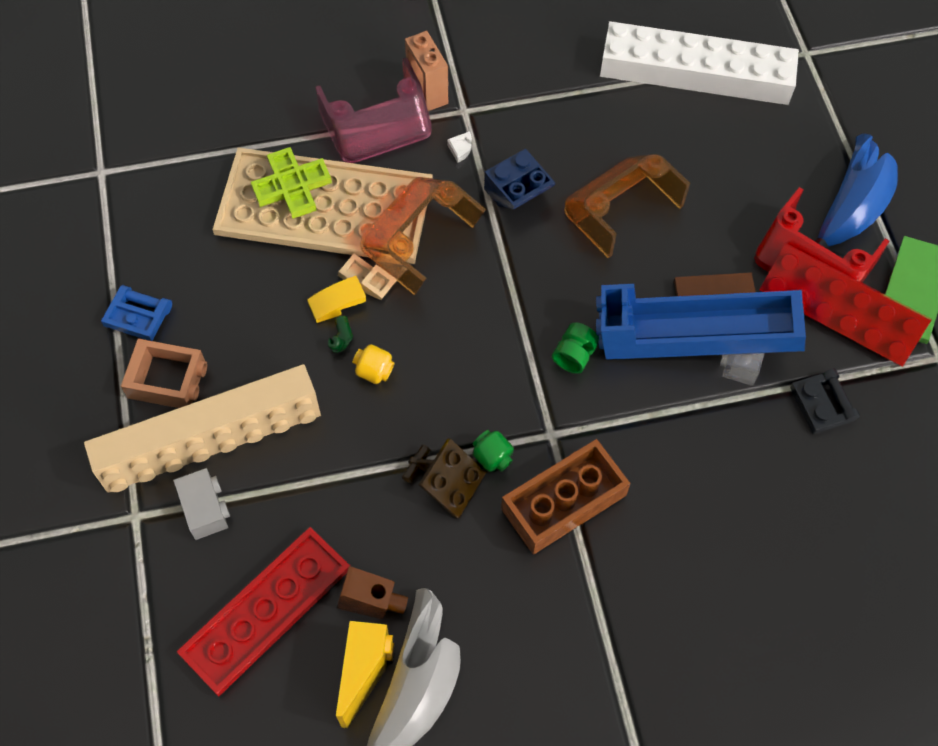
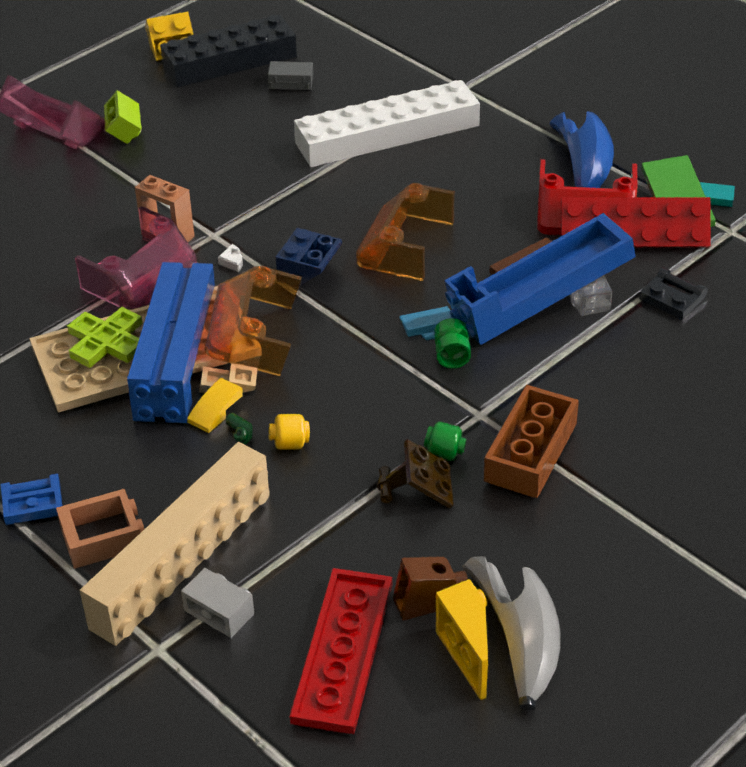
camera: 30 degrees left, 20 degrees down
(337, 214) = (170, 343): none -> blue brick
(575, 306) = (424, 322): none -> dark azure piece

